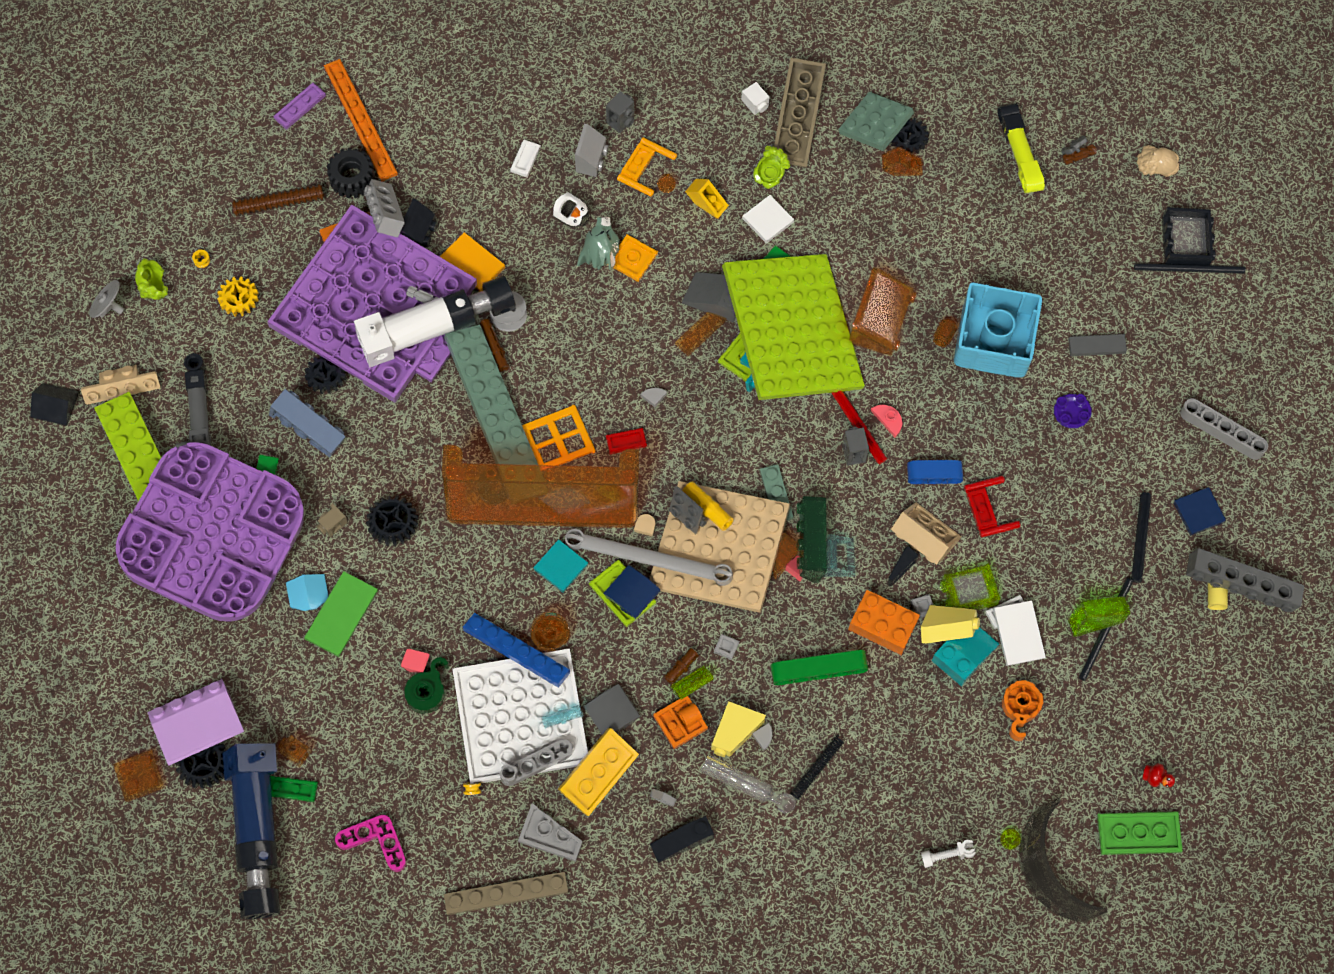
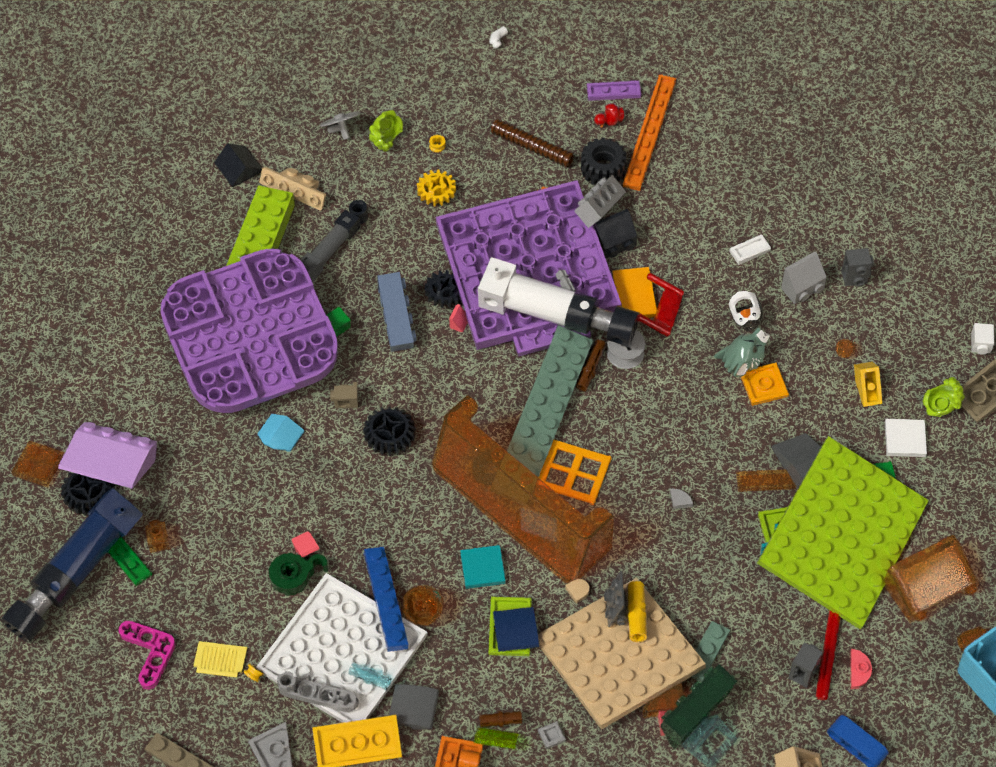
camera: 45 degrees right, 10 degrees down
(161, 132) = (495, 36): none -> white arm
(319, 129) = (612, 115): none -> red animal
(341, 614) = (287, 467): bright green tile -> none
(359, 389) = (458, 319): none -> coral slope
(434, 800) = (220, 659): none -> light yellow window
(508, 253) = (667, 307): none -> red plate
(626, 440) = (626, 515): red tile -> none
(639, 161) = (837, 317): light orange plate -> none
(649, 557) = (555, 615): light grey piece -> none

